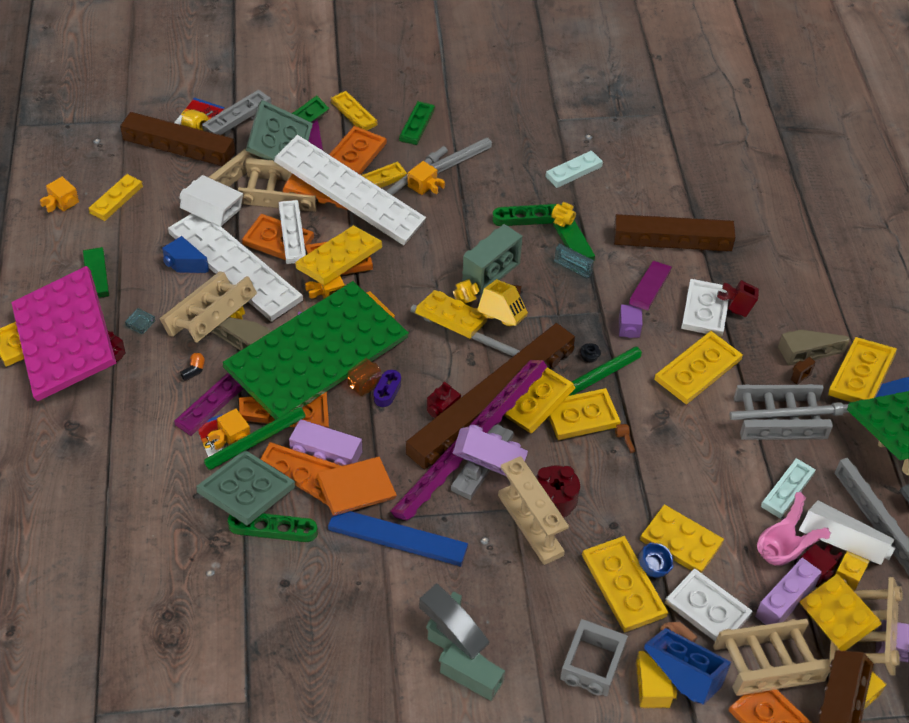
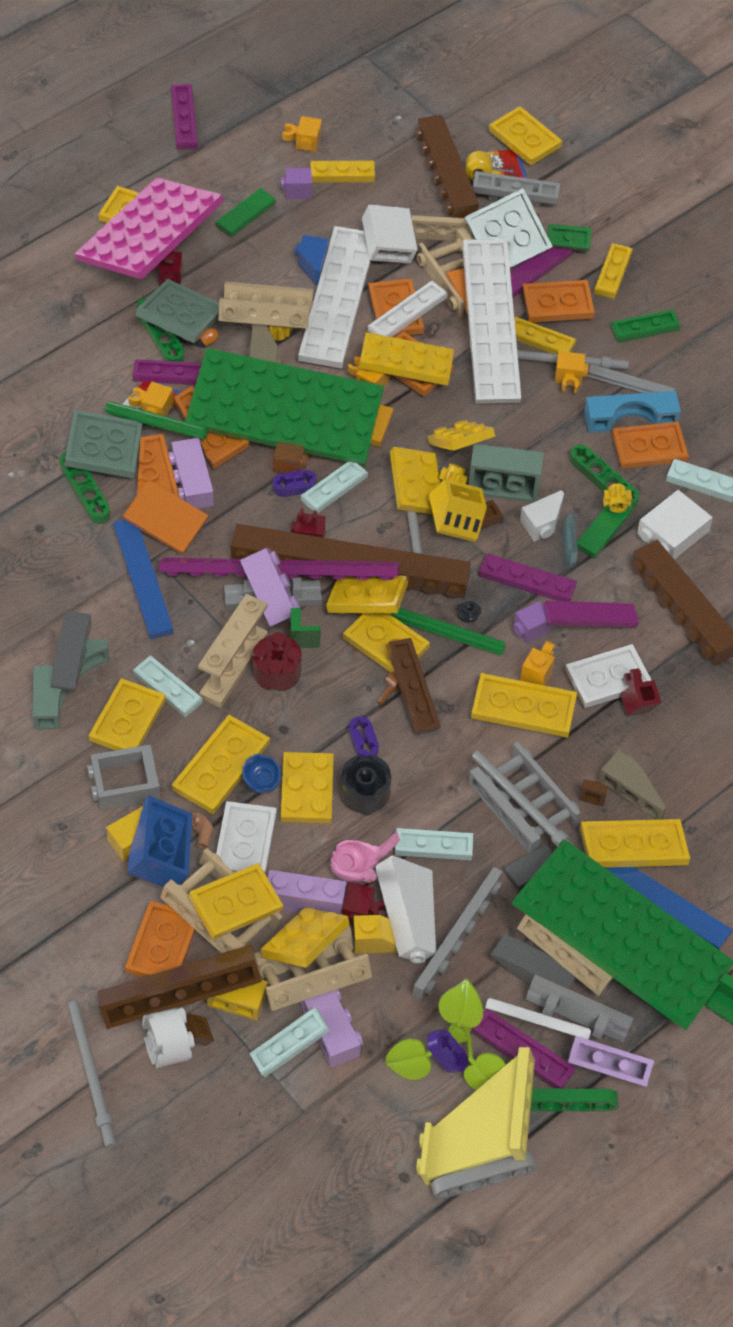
camera: 55 degrees right, 5 degrees up
(103, 225) = (297, 183): none -> medium lavender brick
(140, 321) = (220, 273): clear light blue tile -> none
(160, 362) = (179, 310): none -> sand green plate
(160, 392) = (164, 347): none -> green beam
(190, 85) = (525, 135): none -> yellow plate
(409, 367) = (334, 486): none -> light aqua tile
(439, 263) = (461, 435): none -> yellow plate
(477, 182) = (656, 407): none -> dark azure arch
(518, 579) = (162, 680): none -> light aqua tile
(521, 178) = (649, 445): none -> orange tile
(533, 624) = (127, 716): none -> yellow plate
(541, 455) = (304, 635): none -> green panel
(542, 264) = (542, 516): none -> white slope
(585, 303) = (527, 578): none -> magenta plate
(603, 200) = (675, 524): none -> white brick
(641, 418) = (413, 686): none -> reddish brown plate
(661, 478) = (369, 737): none -> dark purple beam
(674, 338) = (539, 665): none -> light orange brick
(712, 497) = (365, 784): none -> black brick
(786, 639) = (235, 901): none -> yellow plate
(842, 442) = (524, 869): none -> dark grey tile

